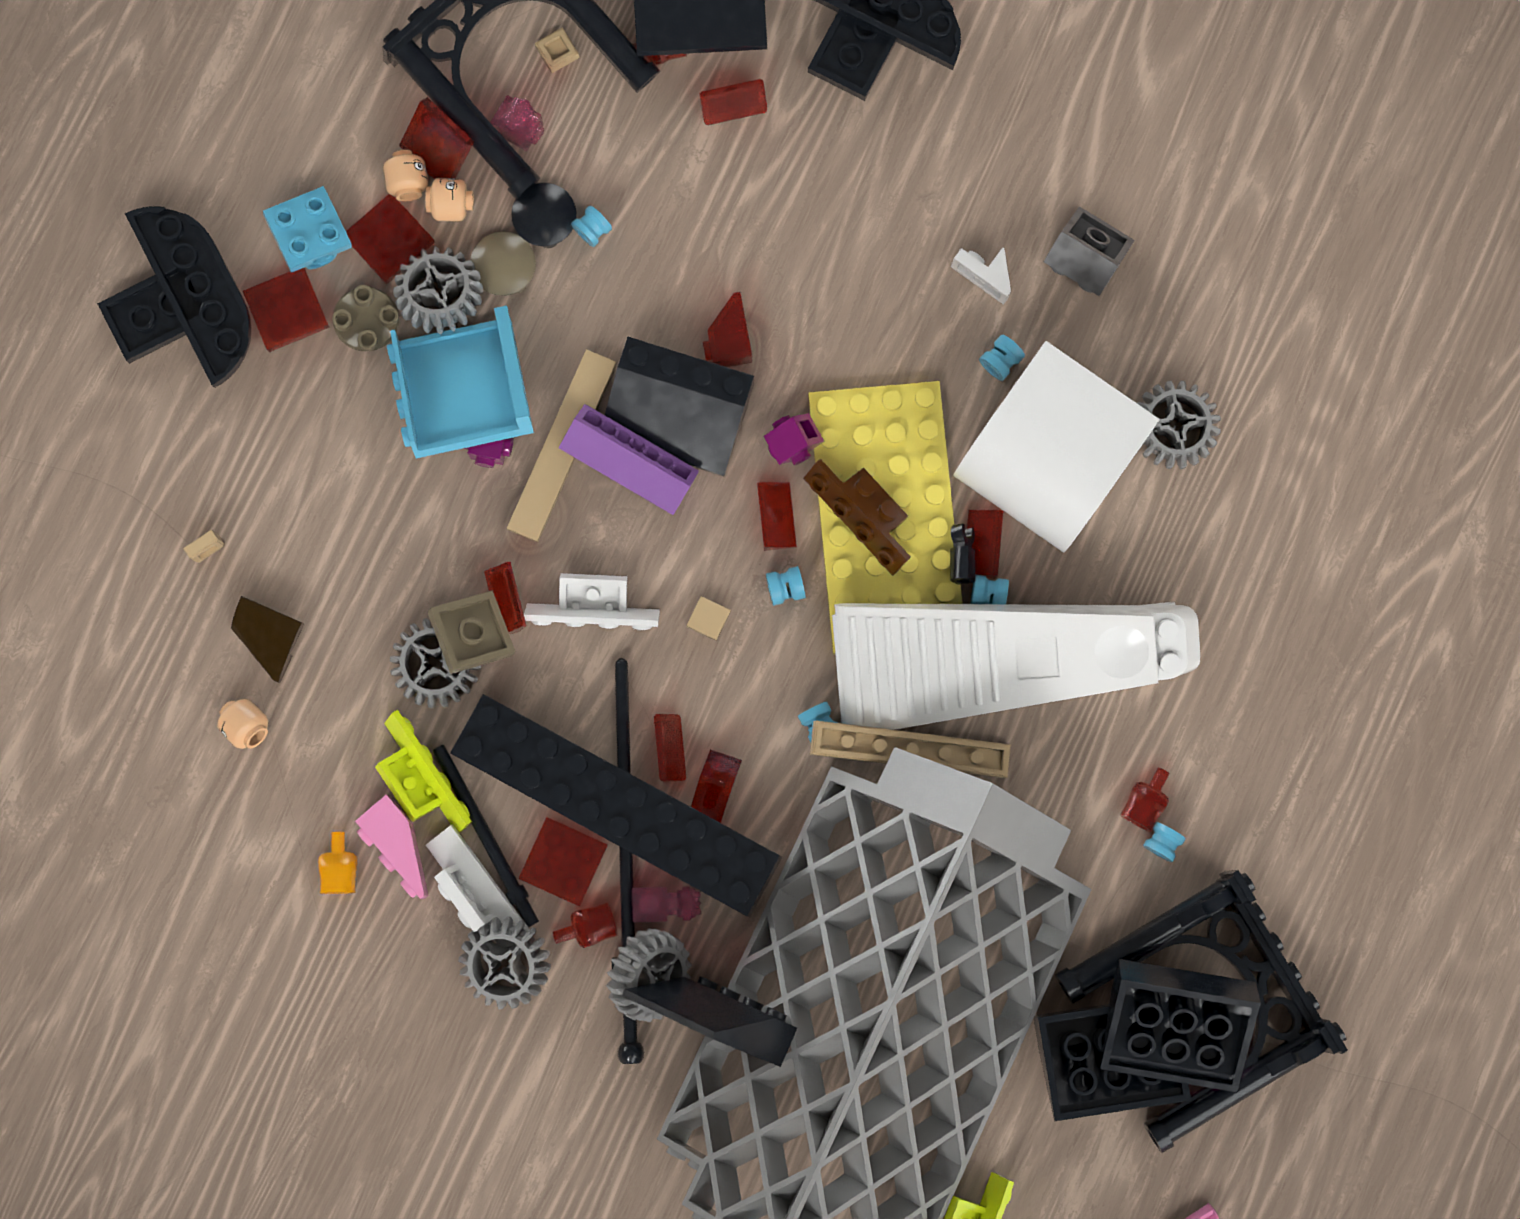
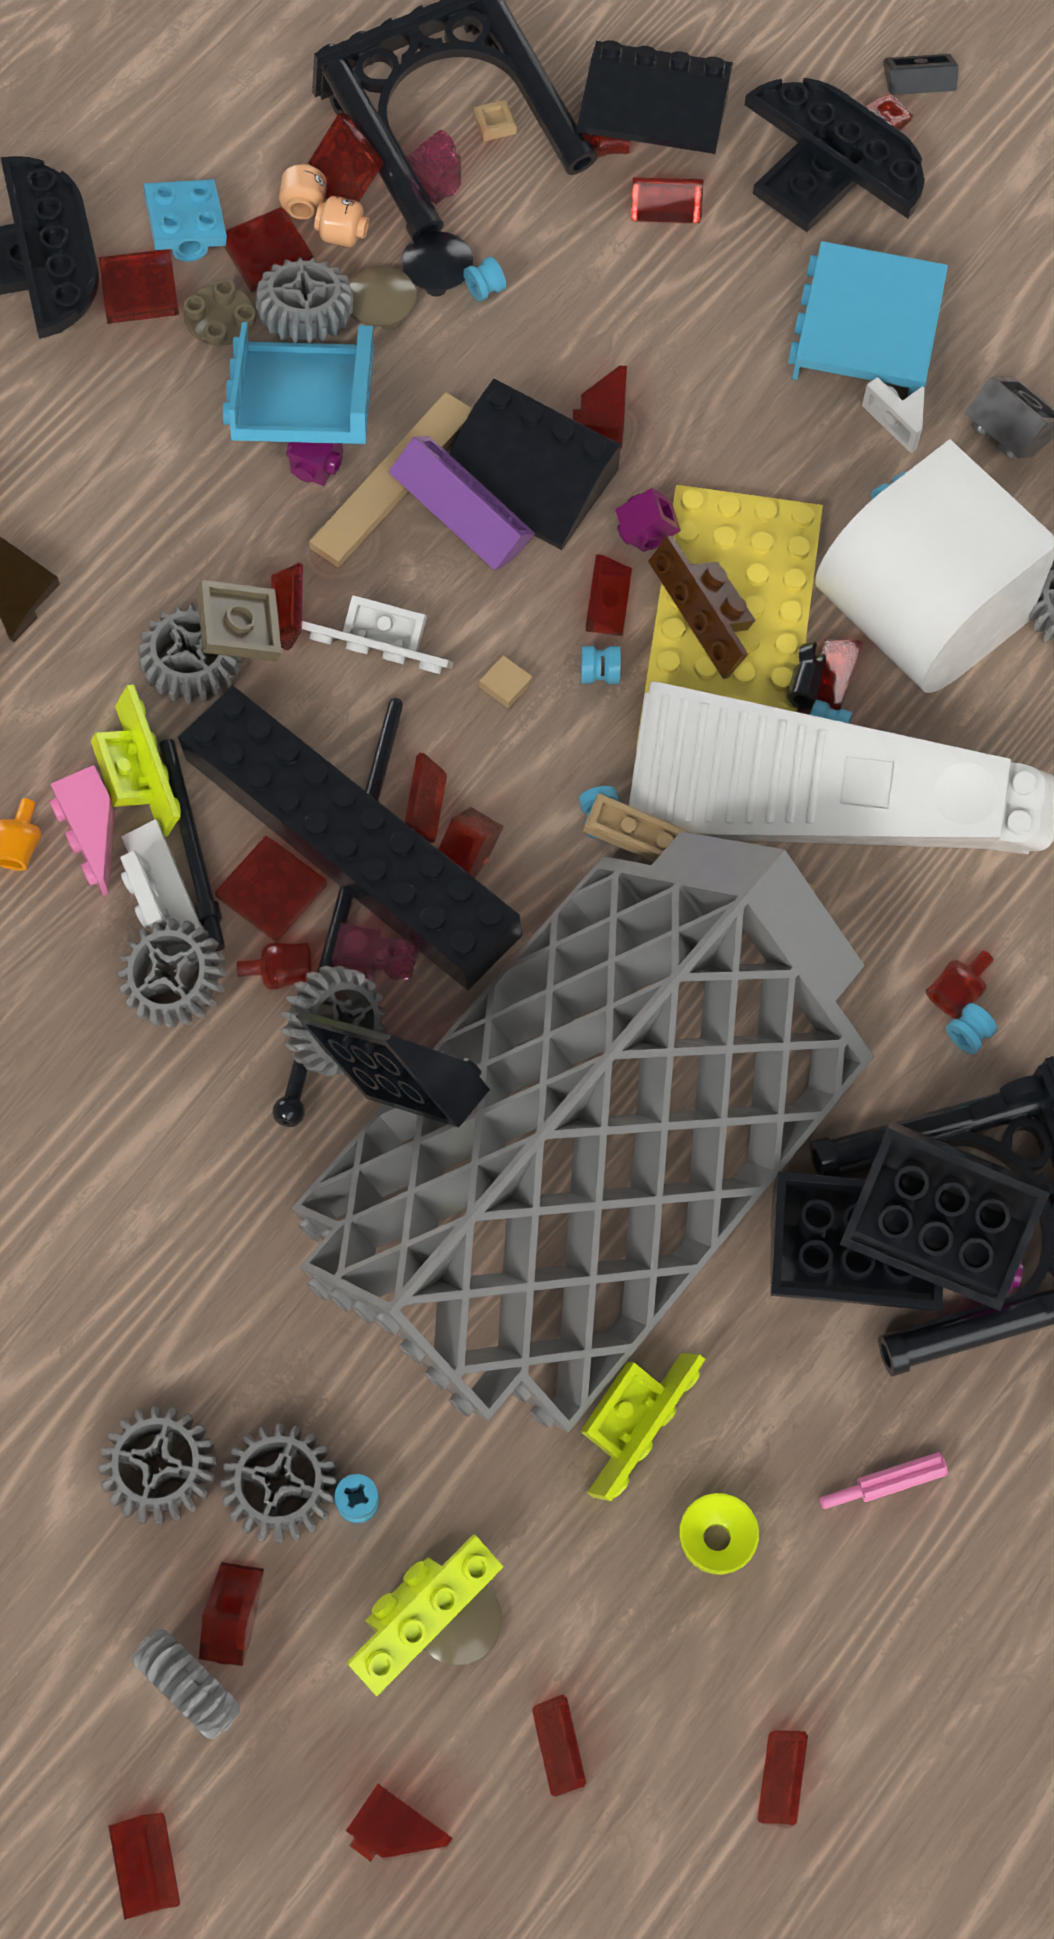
camera: 15 degrees right, 15 degrees down
(940, 183) = (869, 315): none -> medium azure panel

